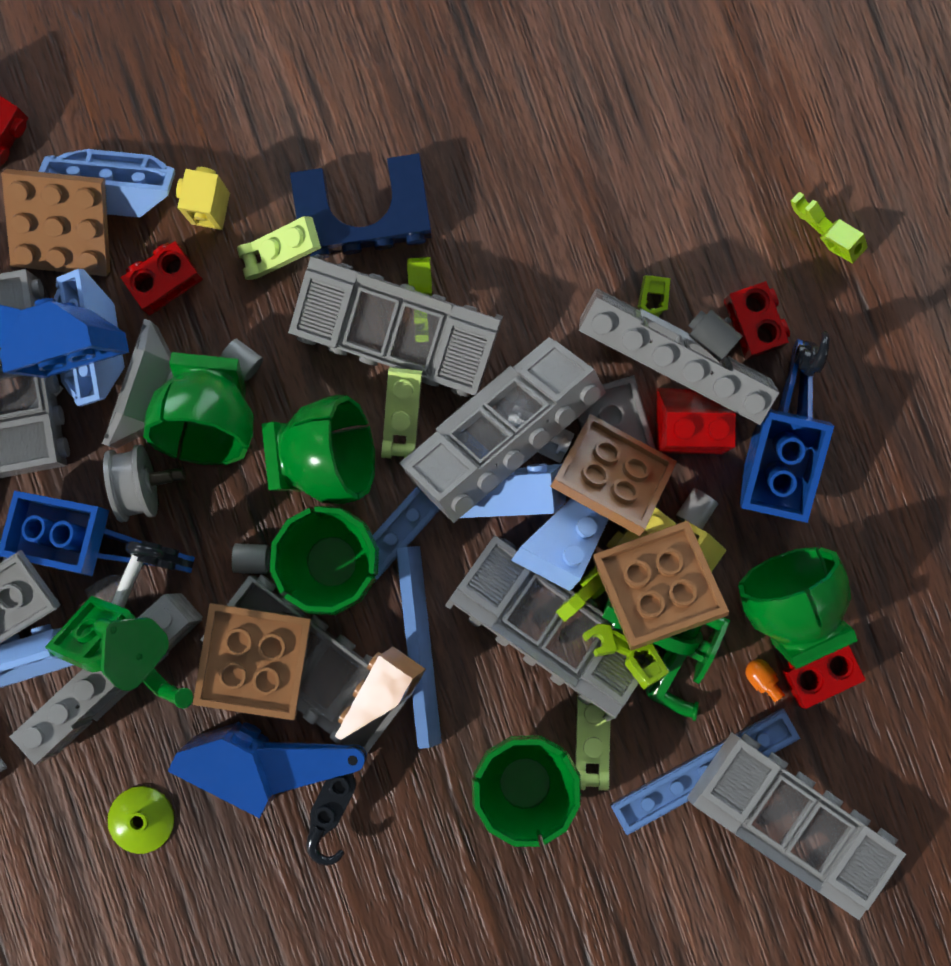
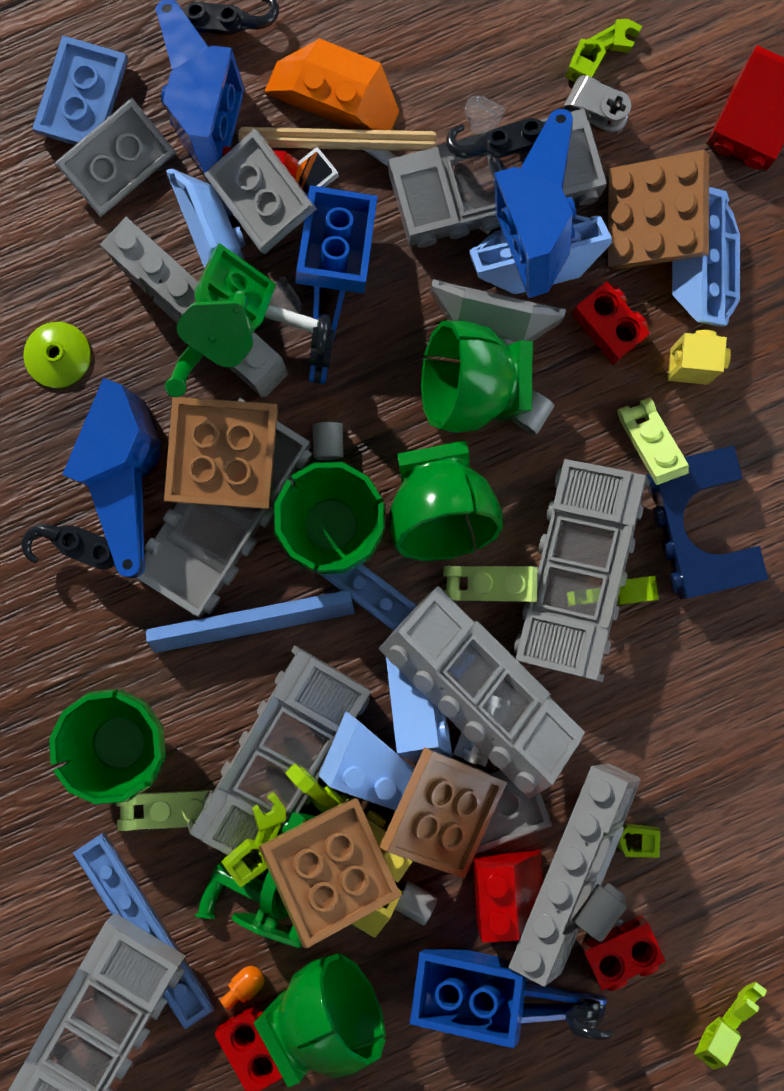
camera: 85 degrees right, 0 degrees up
(133, 483) = (394, 315): light grey wheel -> none
(389, 684) = (202, 592): slope -> none

